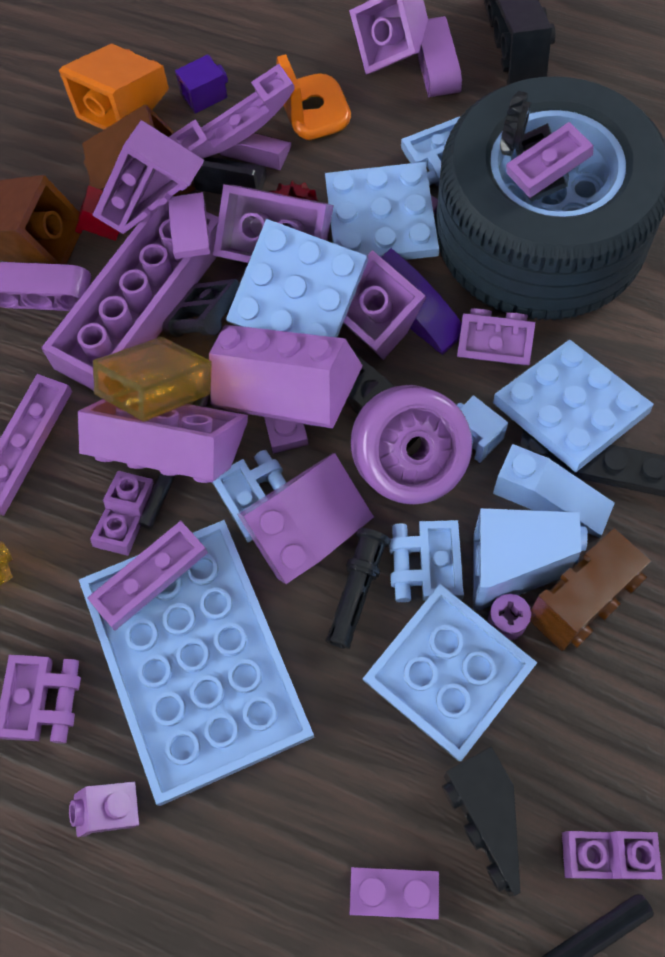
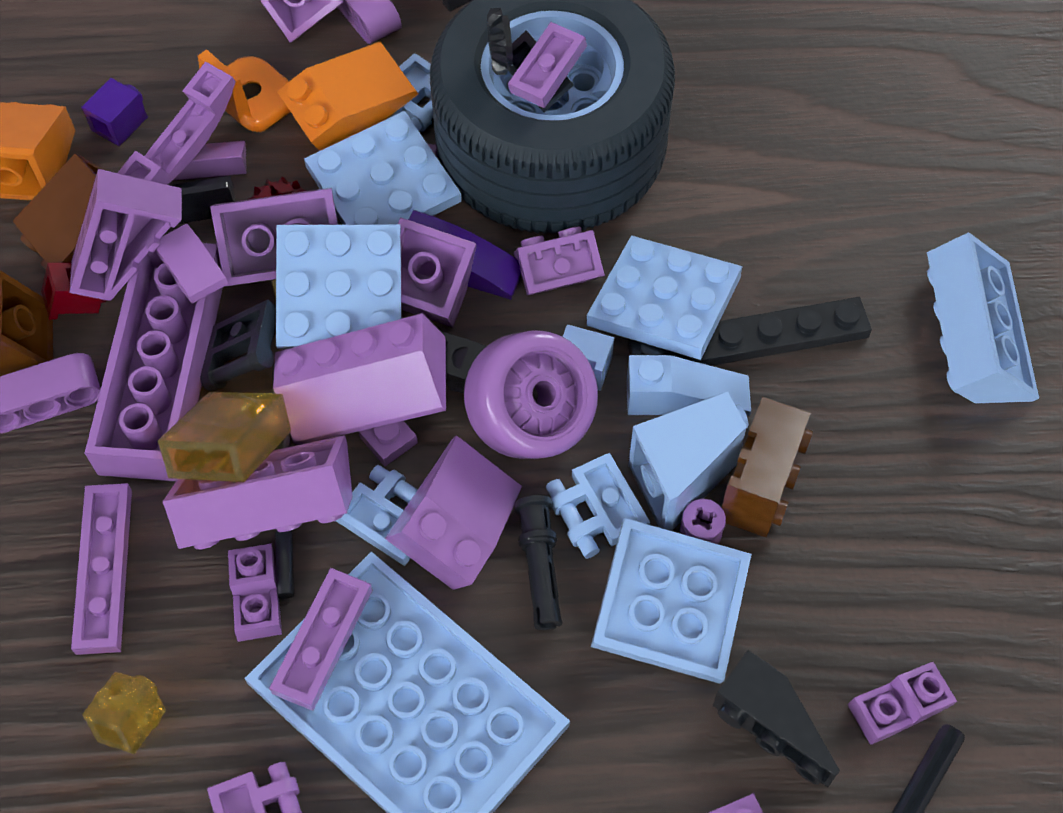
camera: 30 degrees left, 5 degrees down
(385, 131) = (347, 94): none -> orange slope

